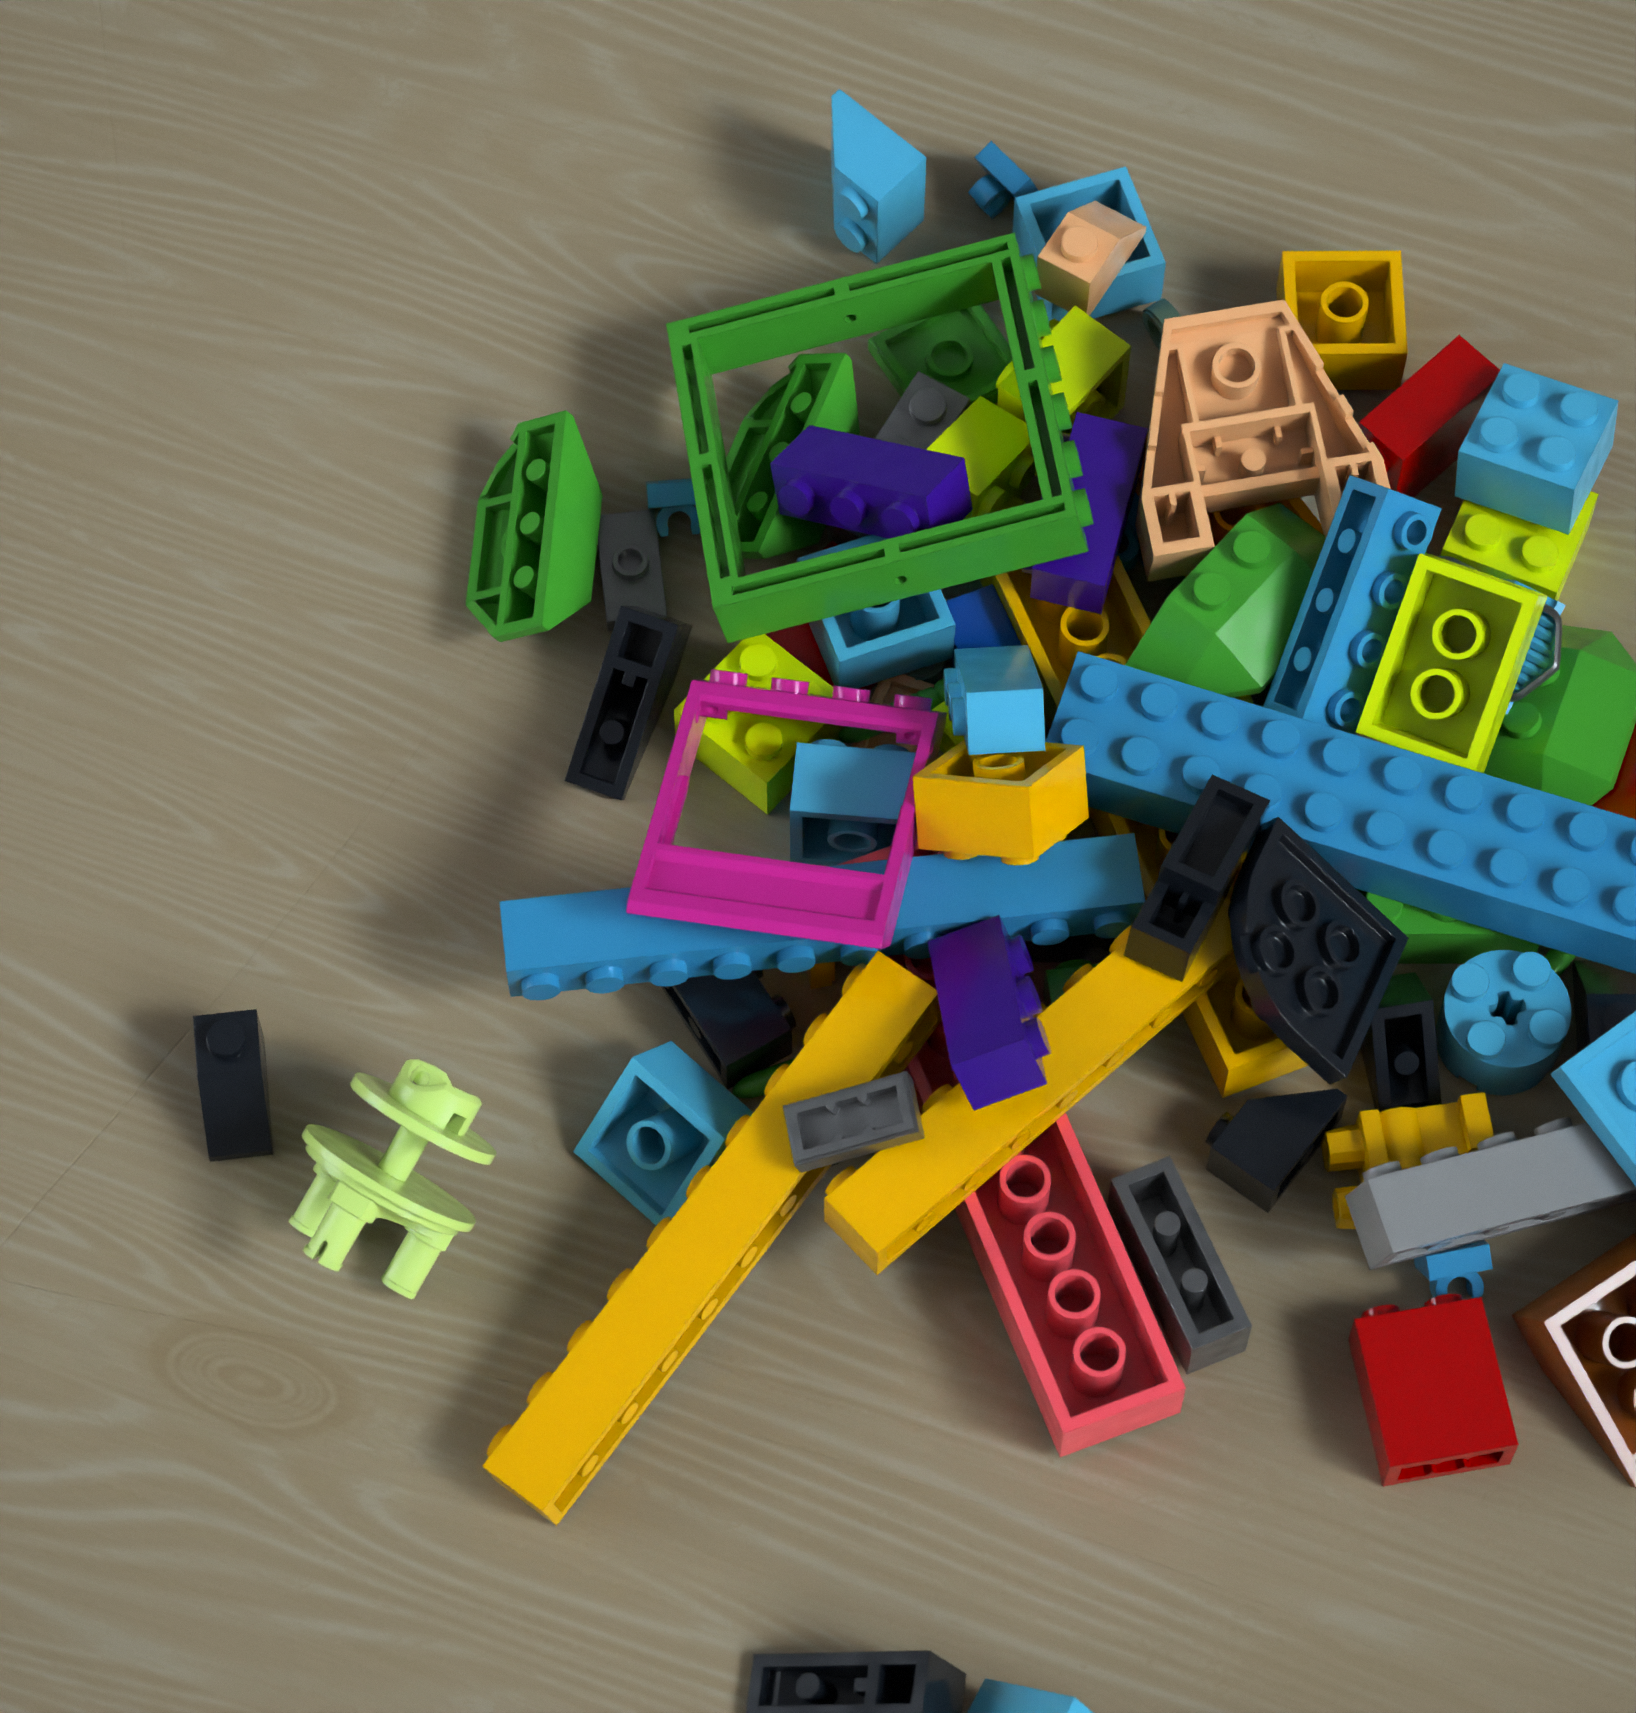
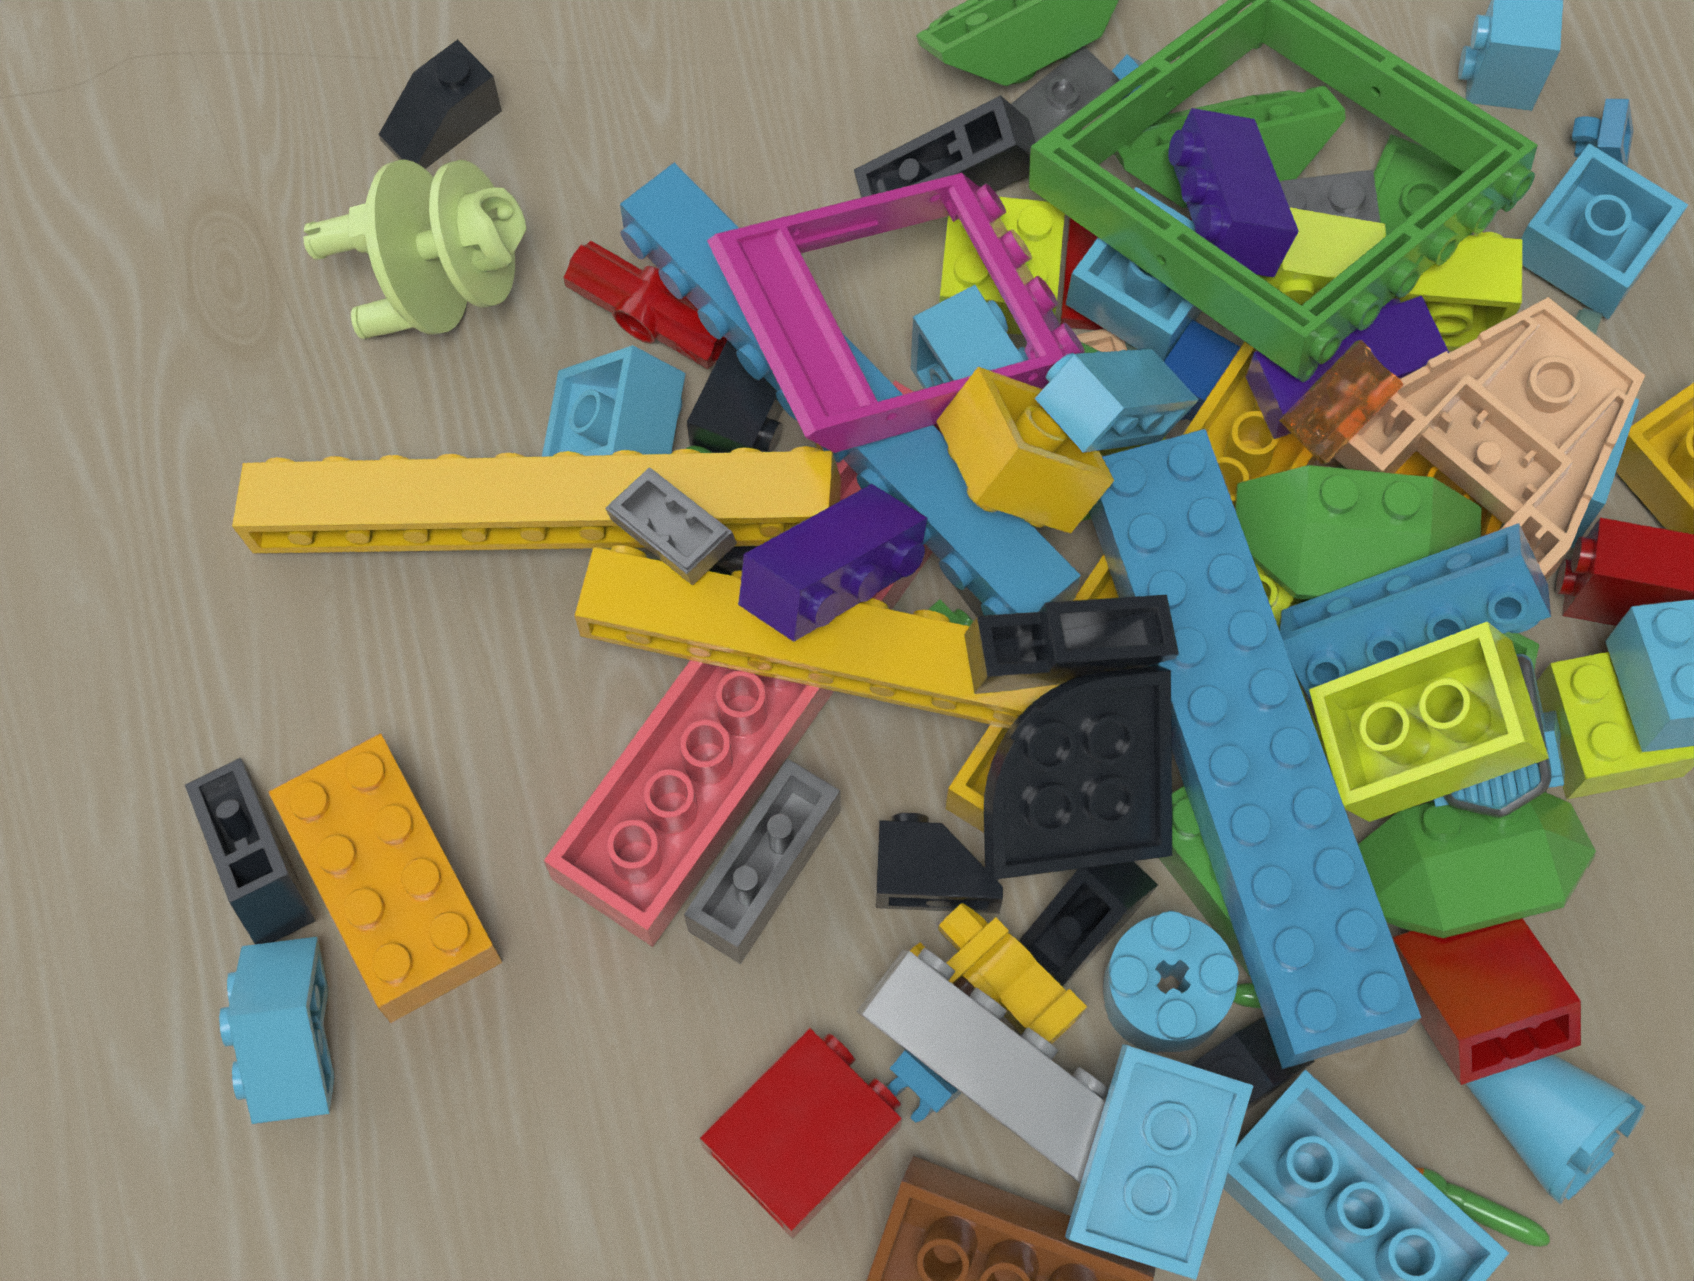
camera: 55 degrees right, 5 degrees up
(571, 1032) = (641, 303): none -> red piece
(969, 1588) = (384, 878): none -> light orange brick
(1086, 256) = (1577, 220): light nougat slope -> none
(1138, 533) = (1341, 402): none -> clear orange hips

